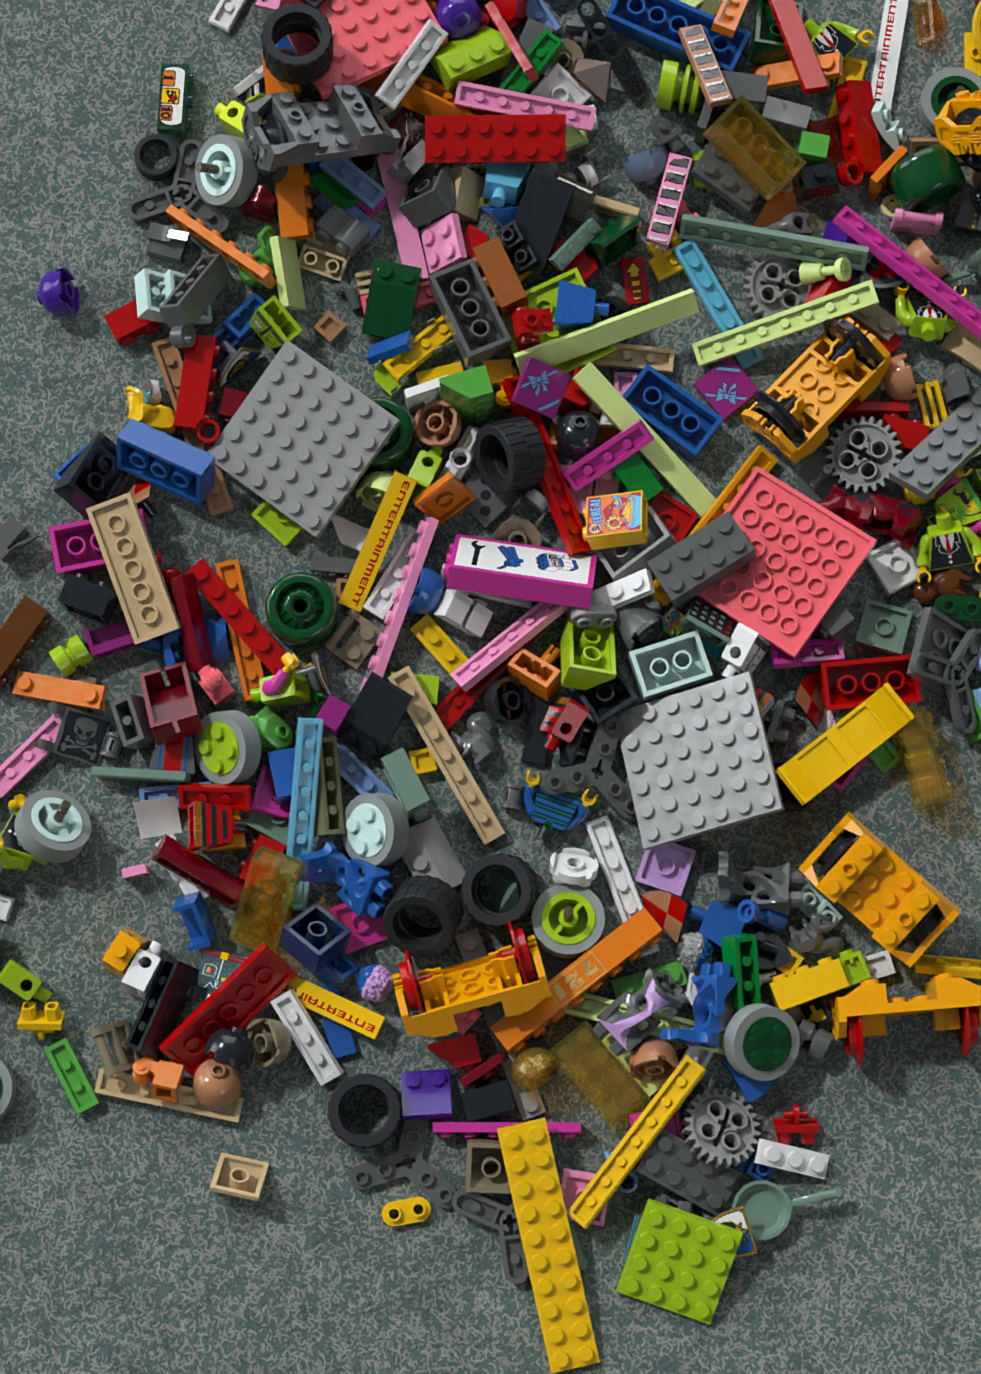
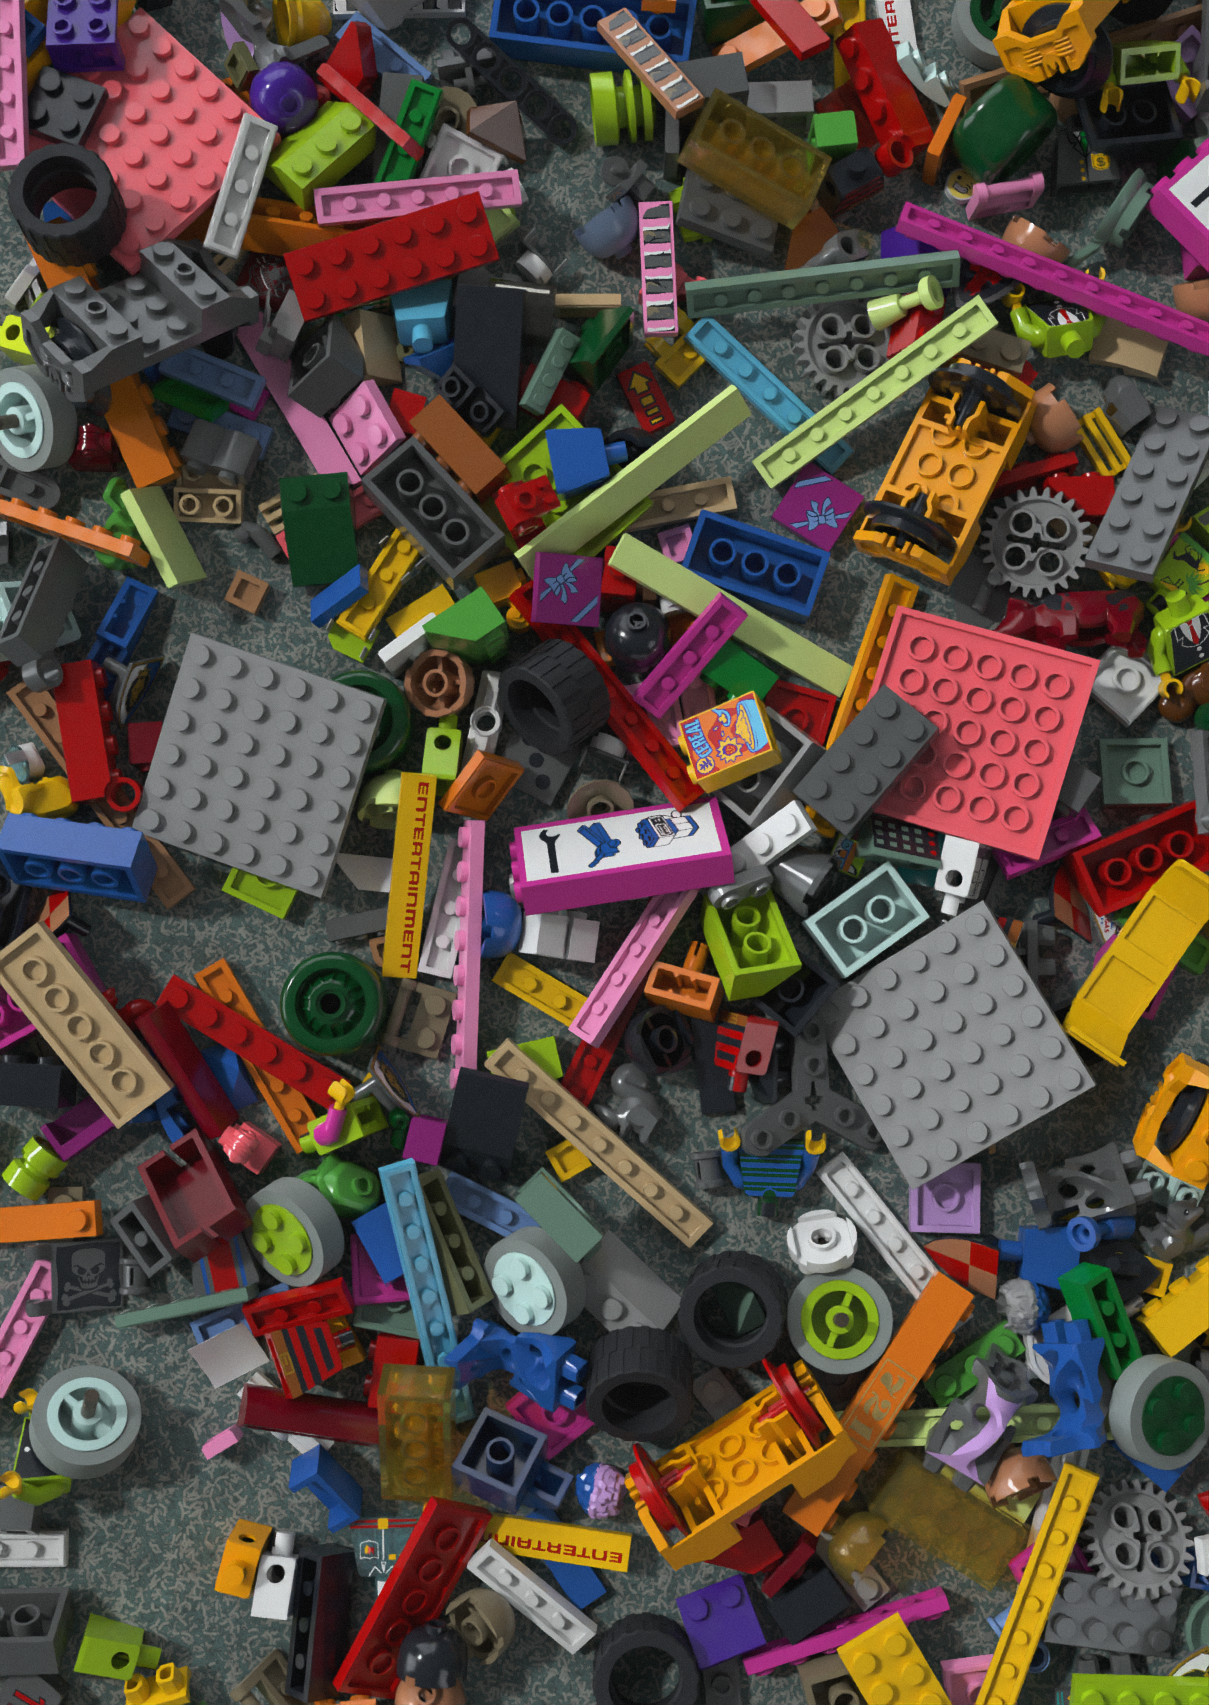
camera: 20 degrees left, 5 degrees up
(274, 324) = (167, 613): lime torso -> none

